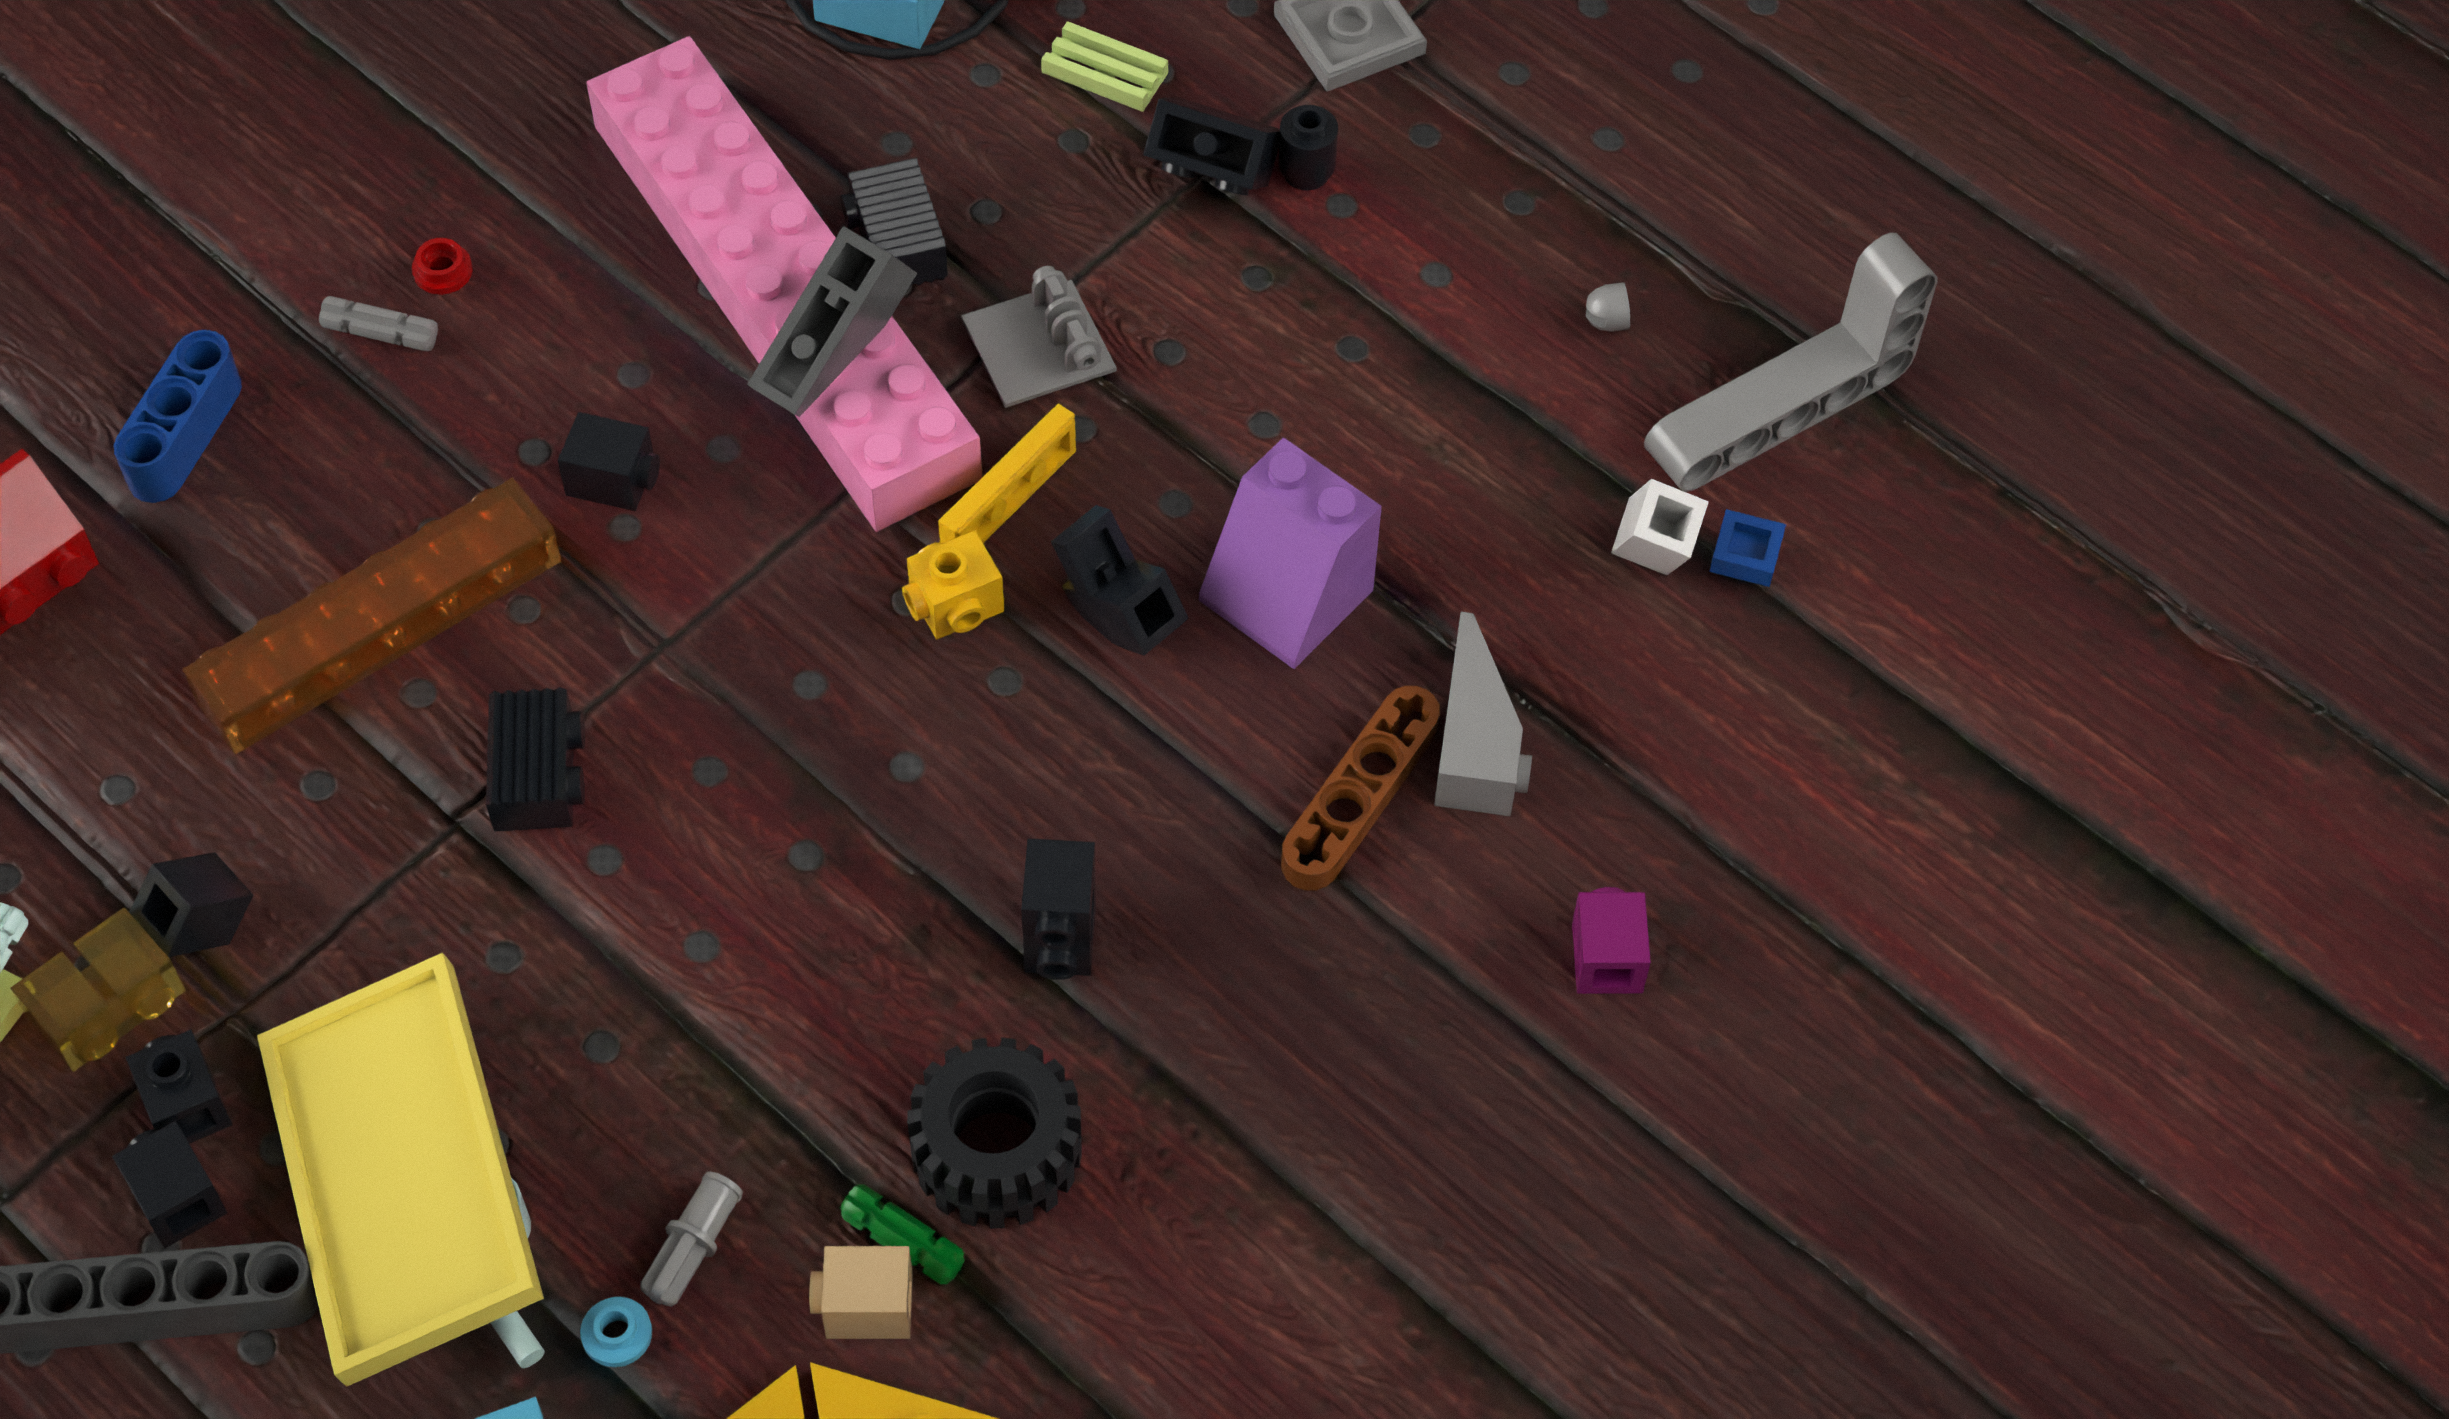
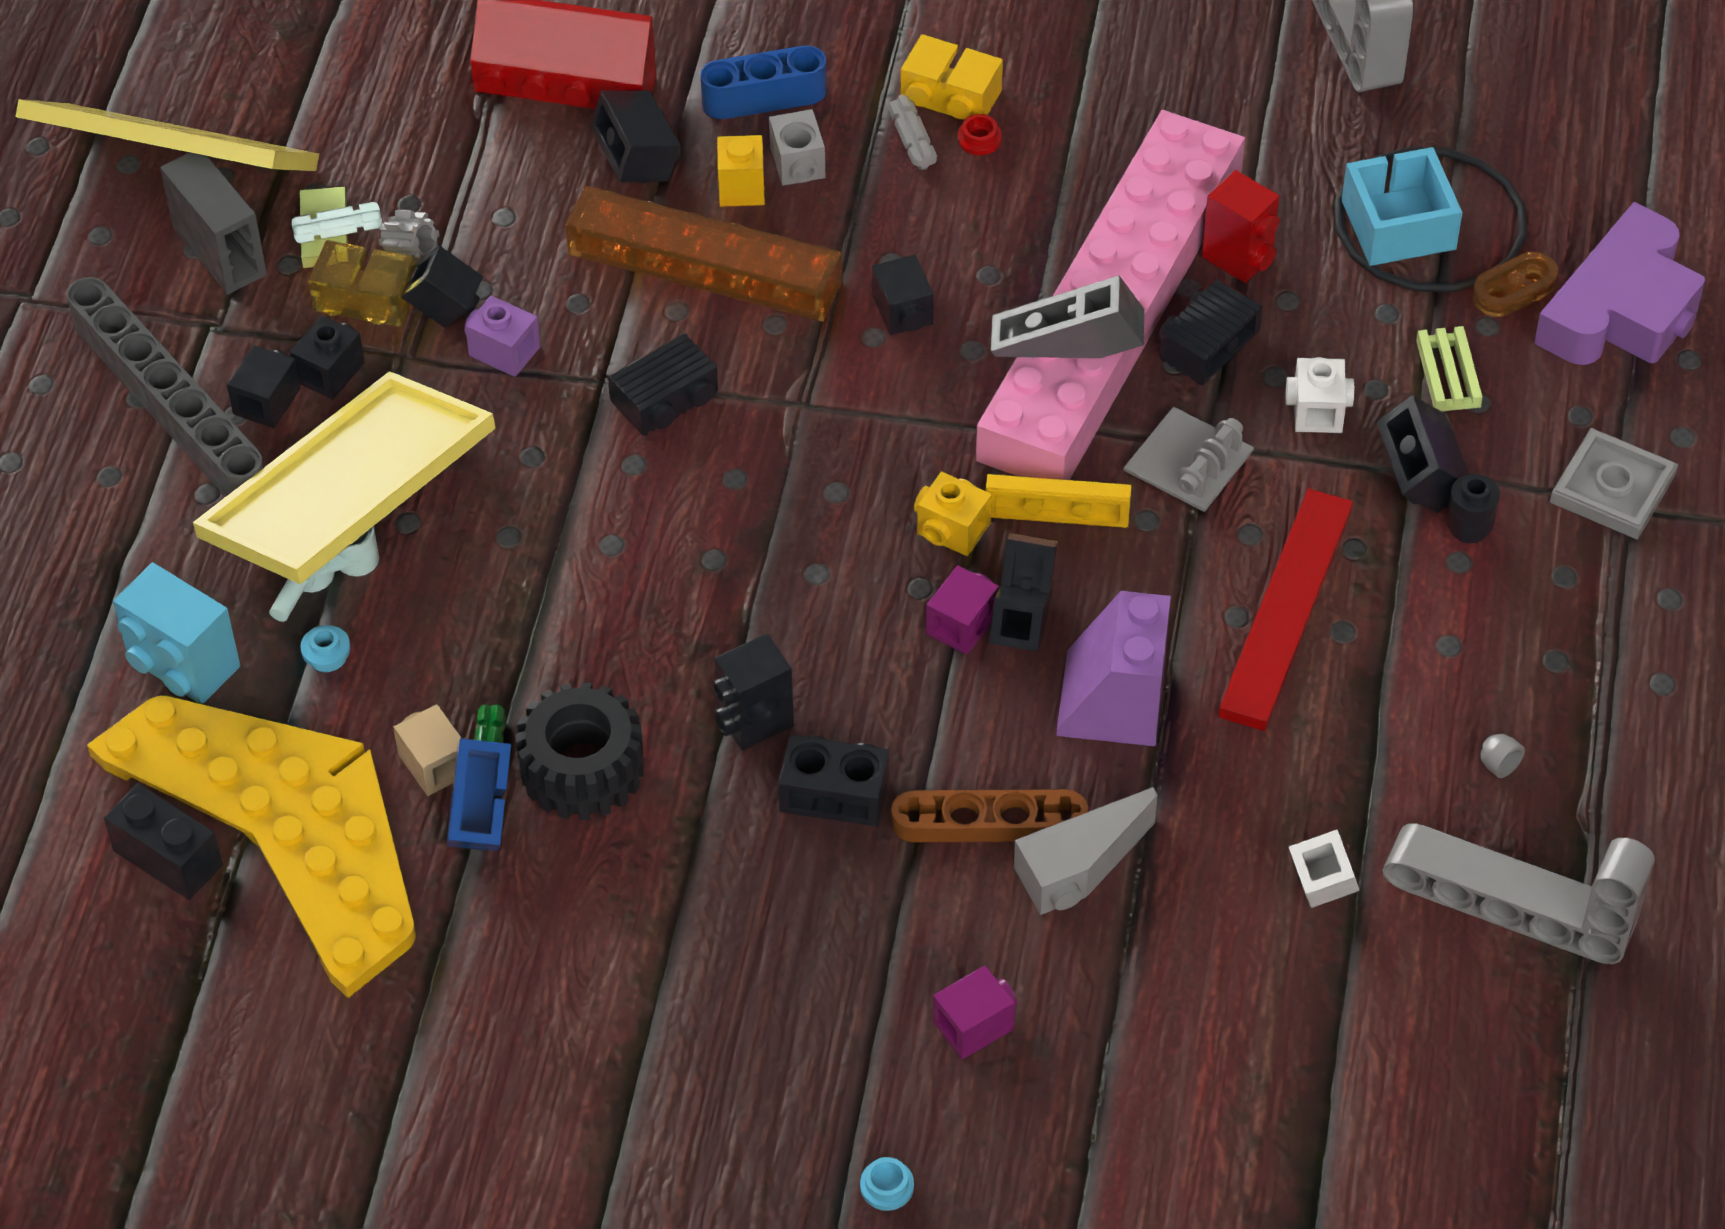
camera: 60 degrees right, 5 degrees down
(75, 898) = (409, 234): none -> light grey gear
(145, 581) = (635, 136): none -> black brick
(291, 509) = (740, 170): none -> yellow brick
(305, 438) = (797, 147): none -> light grey brick
(312, 885) = (502, 335): none -> medium lavender brick
(336, 262) = (958, 91): none -> yellow piece
(690, 1239) = (408, 647): light grey axle -> none
(801, 109) = (1241, 226): none -> red piece
(1003, 1302) = (478, 776): none -> blue piece
(1064, 181) = (1319, 394): none -> white brick
(1082, 652) = (961, 609): none -> magenta brick
(1229, 909) = (832, 789): none -> black brick
(1295, 376) = (1285, 610): none -> red tile
(1747, 548) = (1364, 937): blue plate -> none
(1764, 1151) = (887, 1184): none -> medium azure plate

